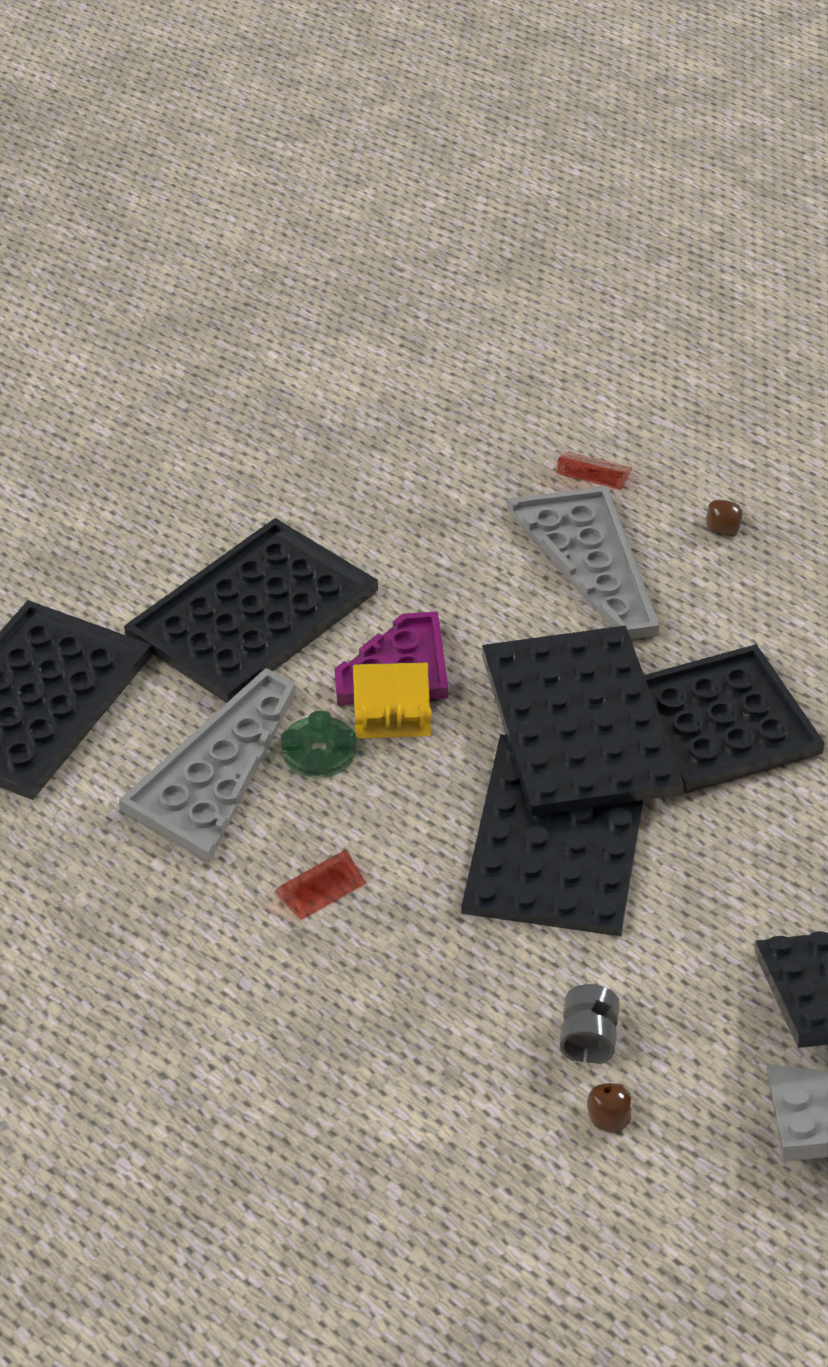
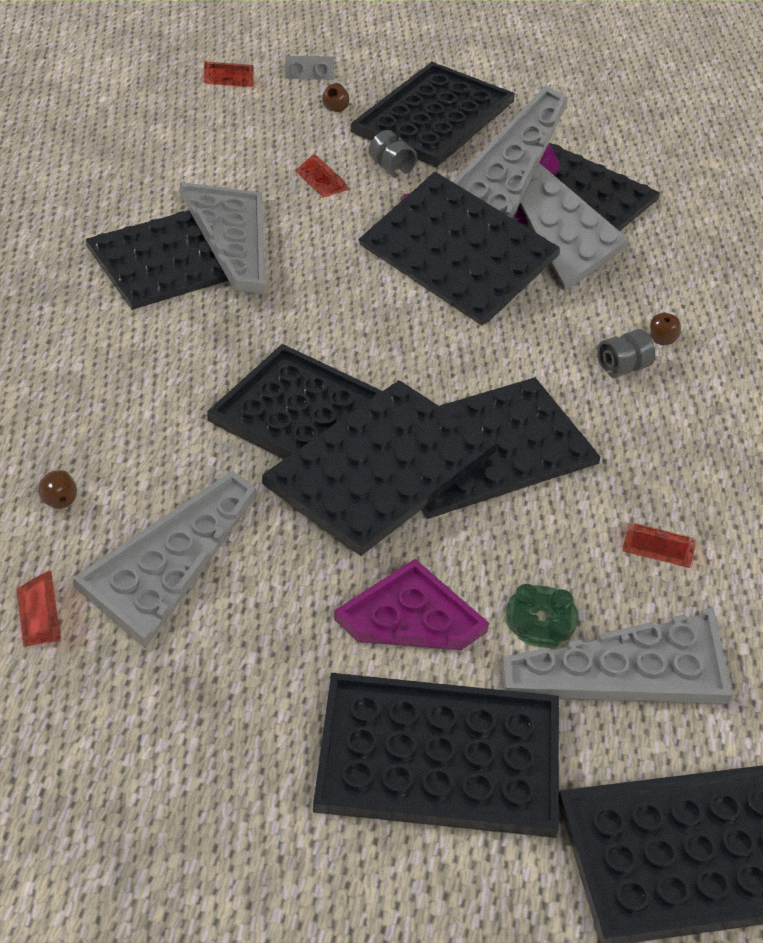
camera: 130 degrees left, 0 degrees up
(391, 700) = (468, 579): yellow hinge -> none

